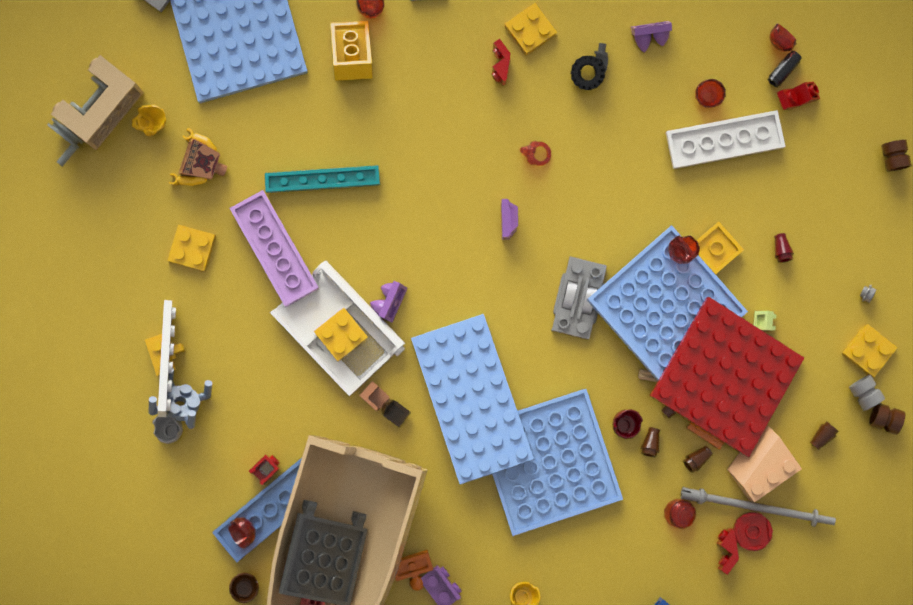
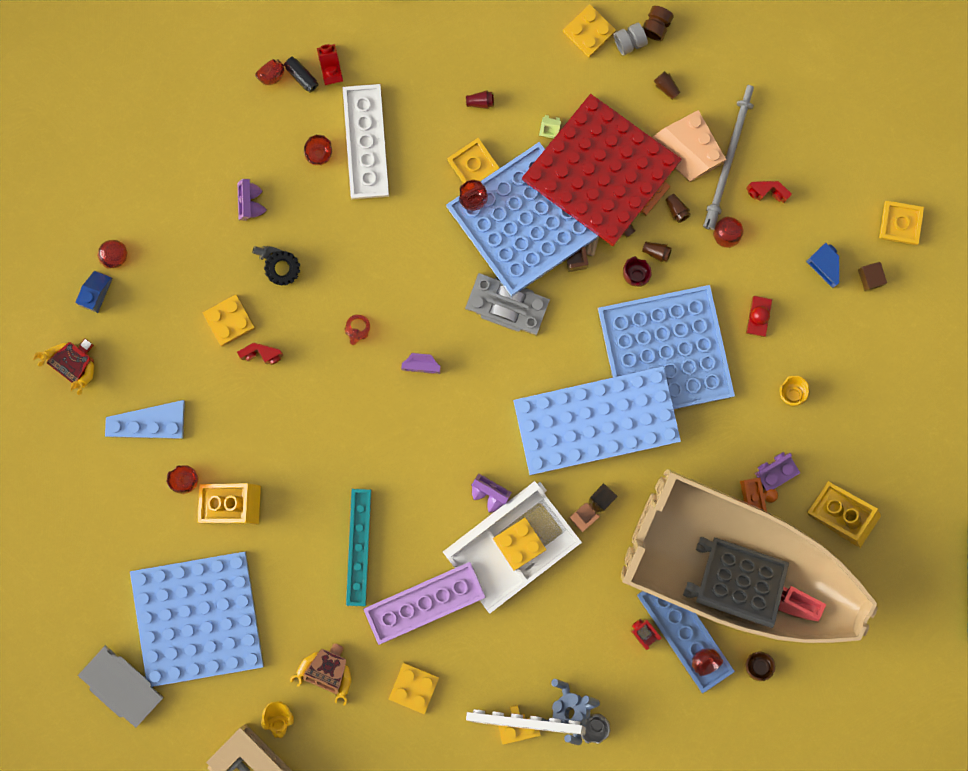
camera: 85 degrees left, 0 degrees up
(597, 553) = (759, 316): none -> red tile
(631, 363) = (578, 261): none -> reddish brown panel
(753, 531) = (751, 164): red tile -> none
(868, 293) = (534, 24): light grey plate -> none

